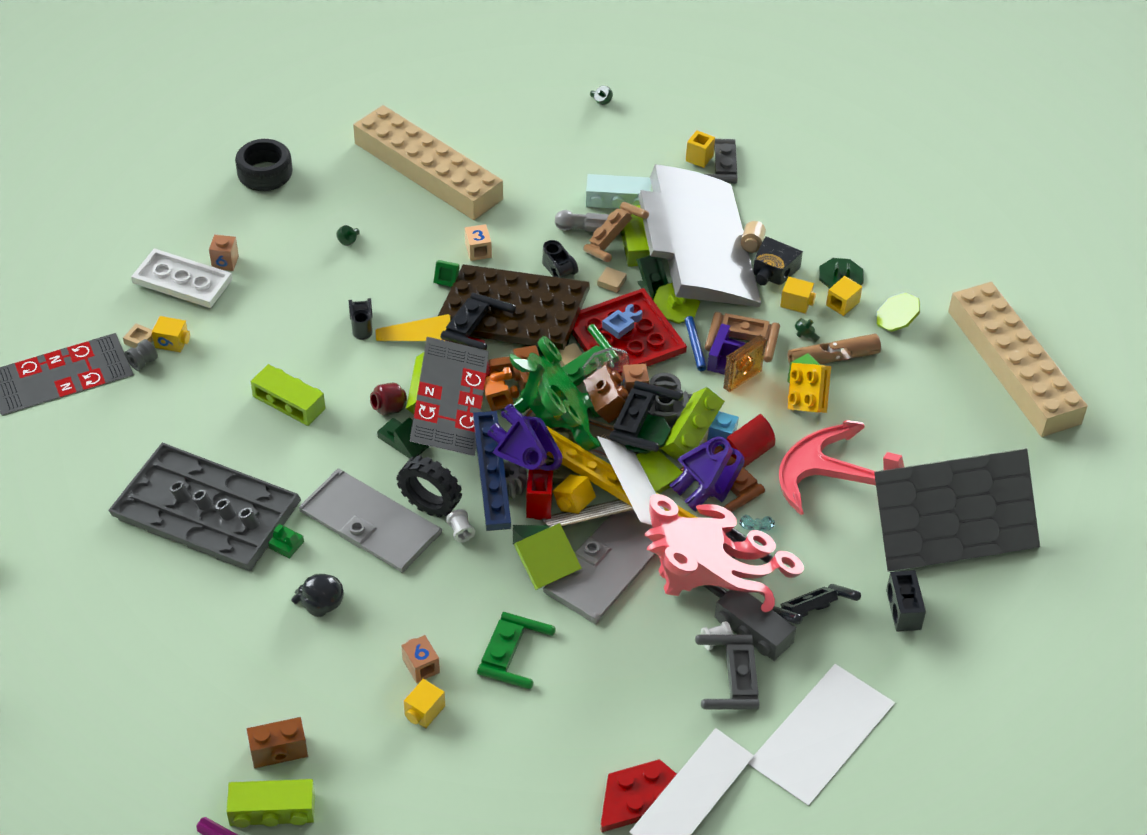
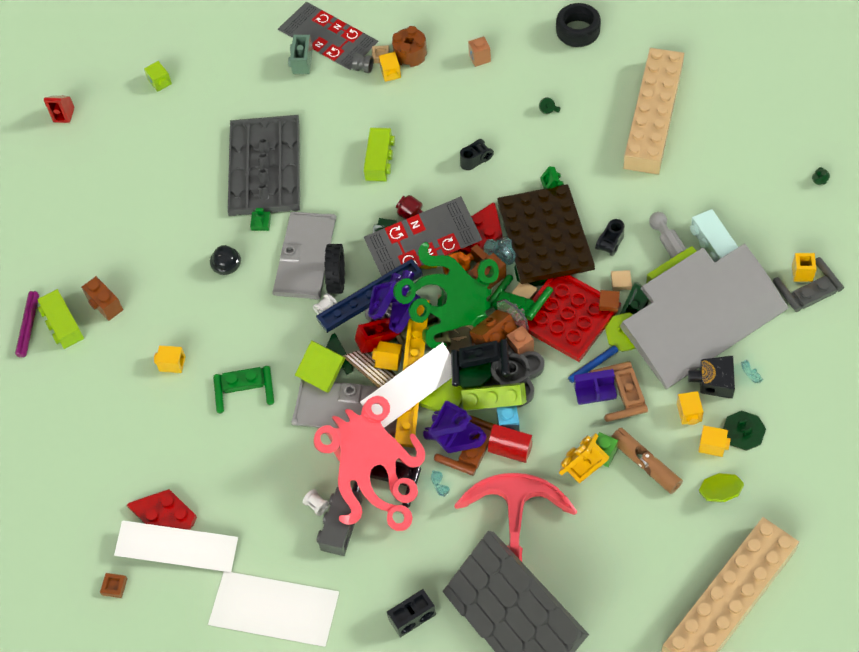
camera: 70 degrees right, 10 degrees up
(76, 400) = (301, 54): none -> sand green brick
(159, 299) = (410, 46): none -> dark orange brick
(182, 278) = (444, 44): white plate -> none
(414, 330) = (485, 193): yellow sticker -> none
(420, 658) = (204, 338): nougat brick -> none
(469, 317) = (507, 213): black plate -> none
(478, 242) = (595, 181): light nougat brick -> none
(507, 340) = (501, 248): none -> clear light blue hair
(611, 228) = (671, 251): medium nougat plate -> none
(621, 323) = (568, 303): medium blue plate -> none
(637, 293) = (609, 300): none -> dark orange tile
(741, 672) = (290, 531): dark grey plate -> none
(744, 363) = (581, 402): clear orange plate -> none
(753, 236) = (732, 347): tan brick -> none
(790, 240) = (755, 377): none -> clear light blue piece
(806, 329) = (657, 430): dark green piece -> none
(819, 599) = (378, 548): black plate -> none

